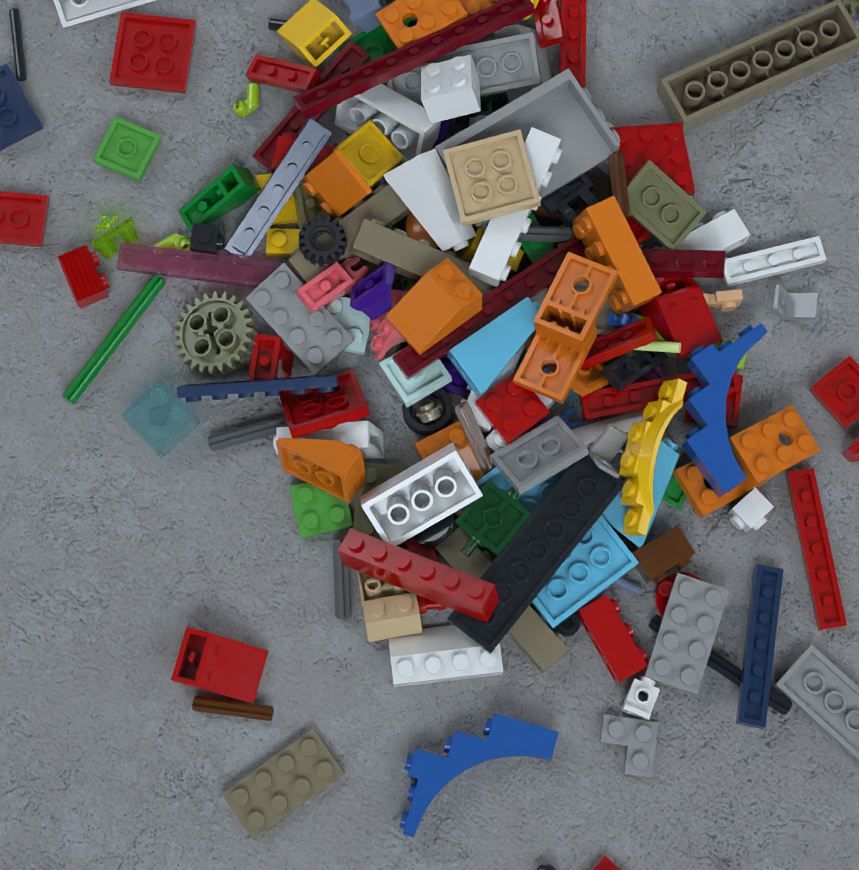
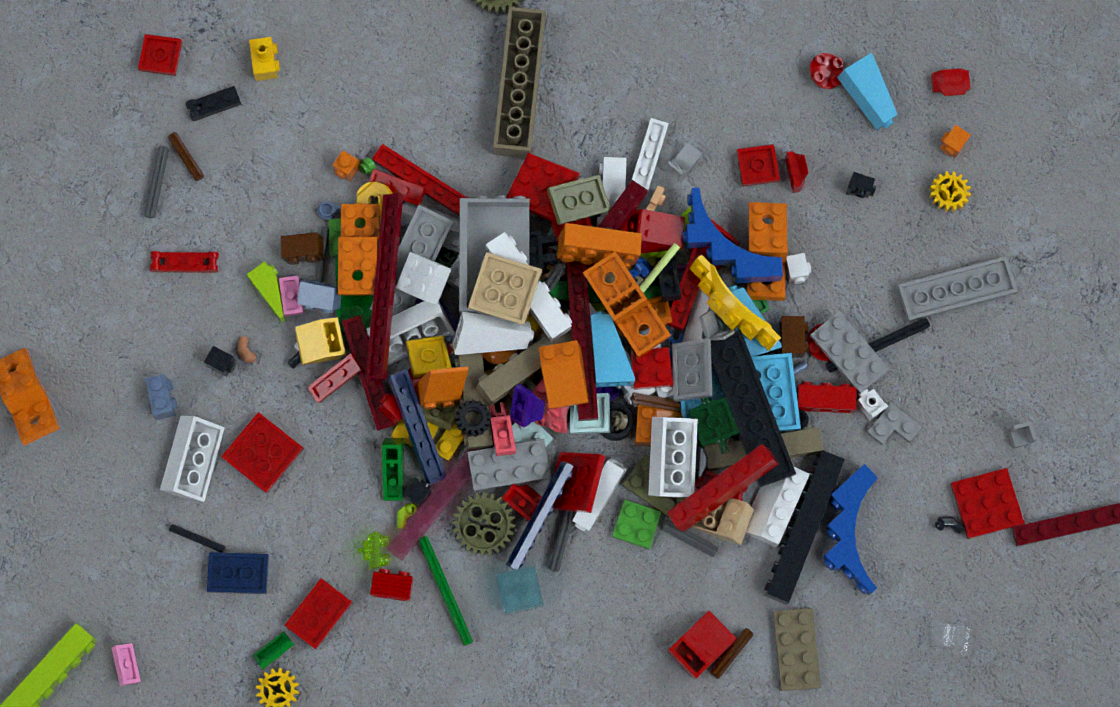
camera: 60 degrees left, 0 degrees up
(127, 149) = (320, 508): bright green plate -> none
(250, 104) = (338, 411): lime arm -> none
(324, 464) = (617, 504): orange slope -> none
(437, 705) = (804, 528): none -> black brick
(619, 181) = (551, 214): reddish brown axle -> none
(620, 342) = (652, 276): red plate -> none
(759, 646) = (882, 314): dark blue plate -> none
(816, 549) = (842, 245): red plate -> none

